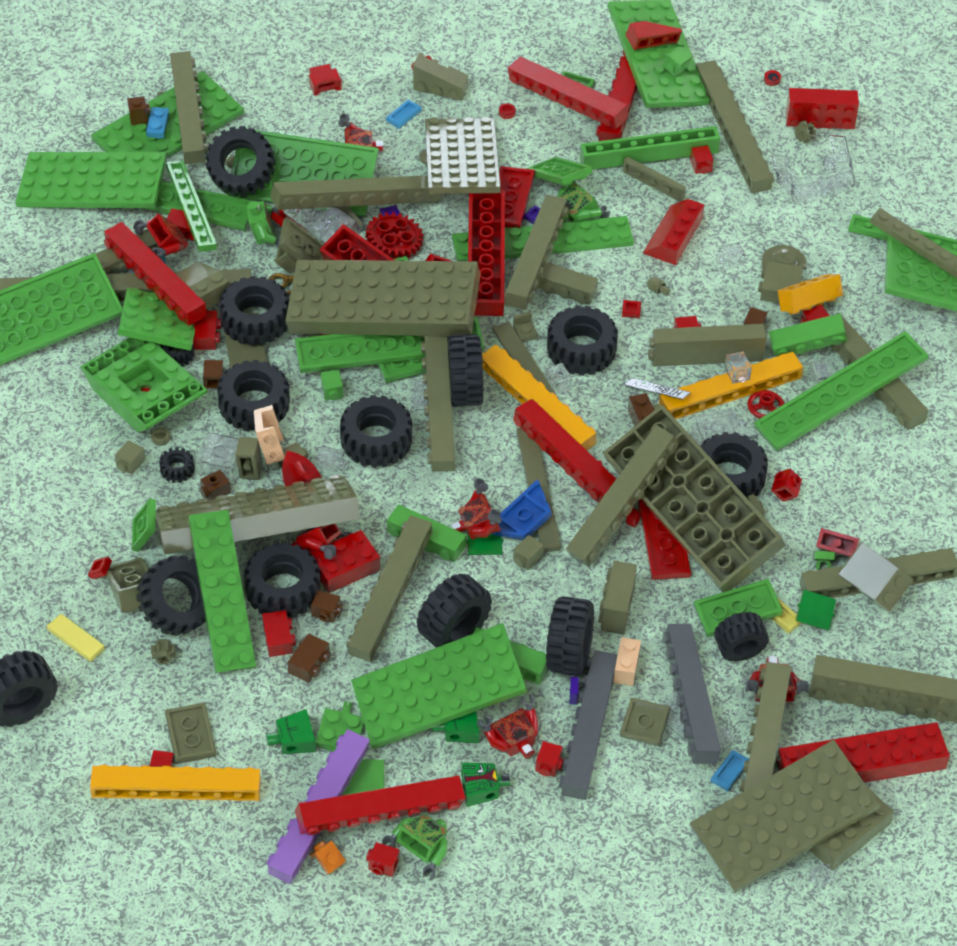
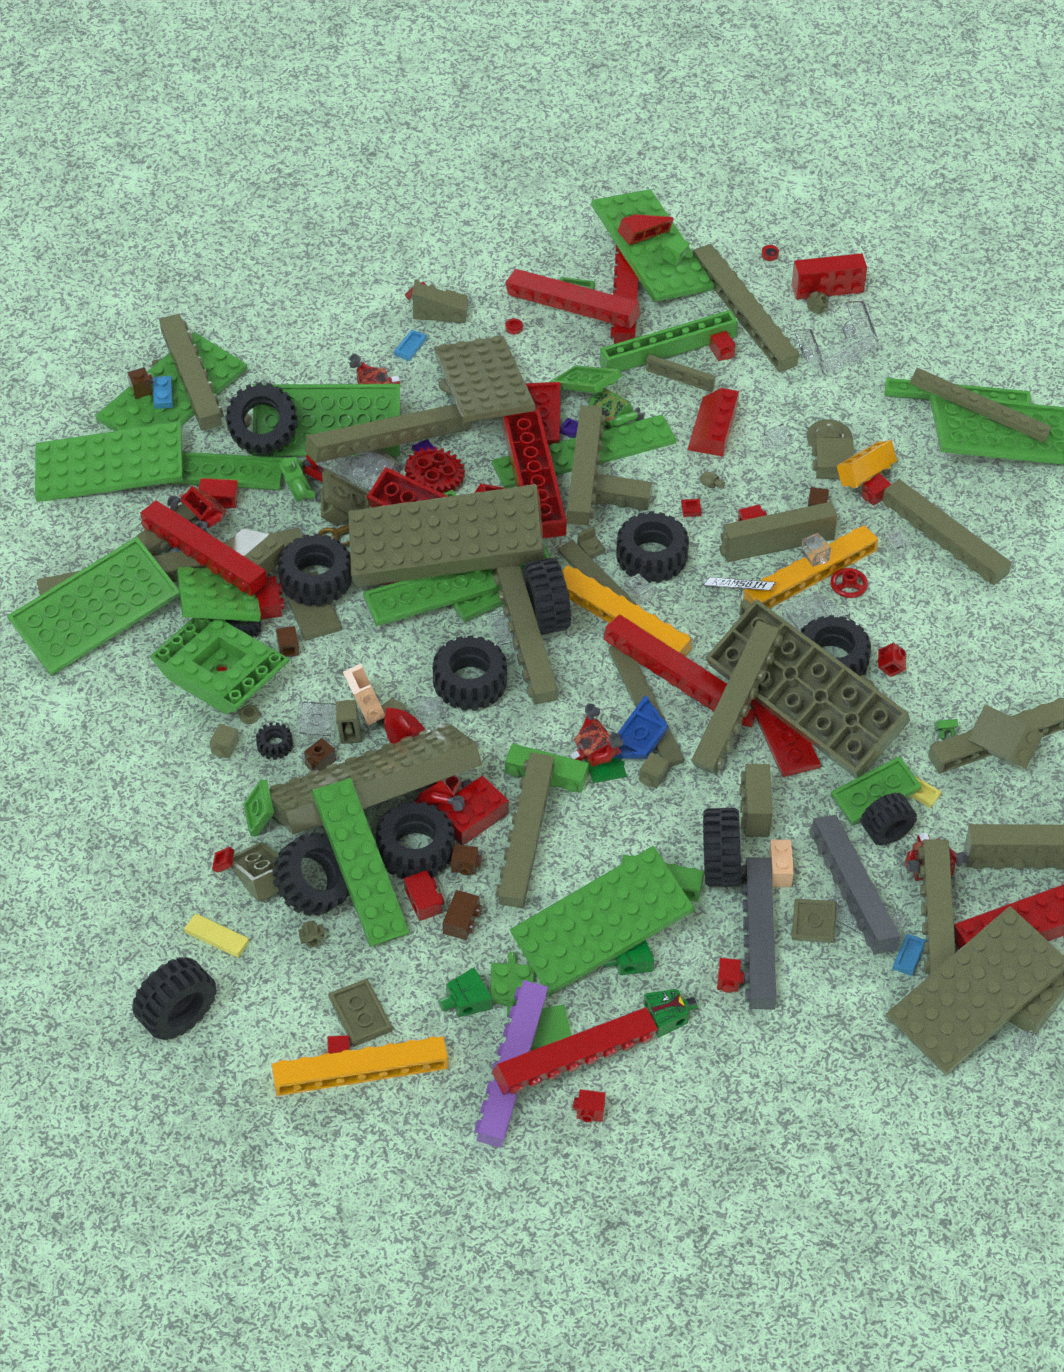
camera: 10 degrees left, 0 degrees up
(191, 206) = (221, 472): bright green plate -> none
(252, 377) = (331, 638): black tyre -> none
(323, 79) = (320, 321): red piece -> none
(327, 856) = (533, 1112): orange bracket -> none
(331, 385) = (411, 633): bright green brick -> none
(423, 838) = (626, 1077): bright green torso -> none
(453, 610) = (599, 842): black tyre -> none
(513, 732) = (687, 953): torso -> none
(573, 697) = (735, 901): dark purple tile -> none
(639, 407) = (728, 608): reddish brown brick -> none
(808, 335) = (875, 506): bright green brick -> none
(815, 610) = (952, 779): green piece -> none
(837, 542) = (957, 709): brick -> none
(840, 391) = (921, 557): bright green plate -> none

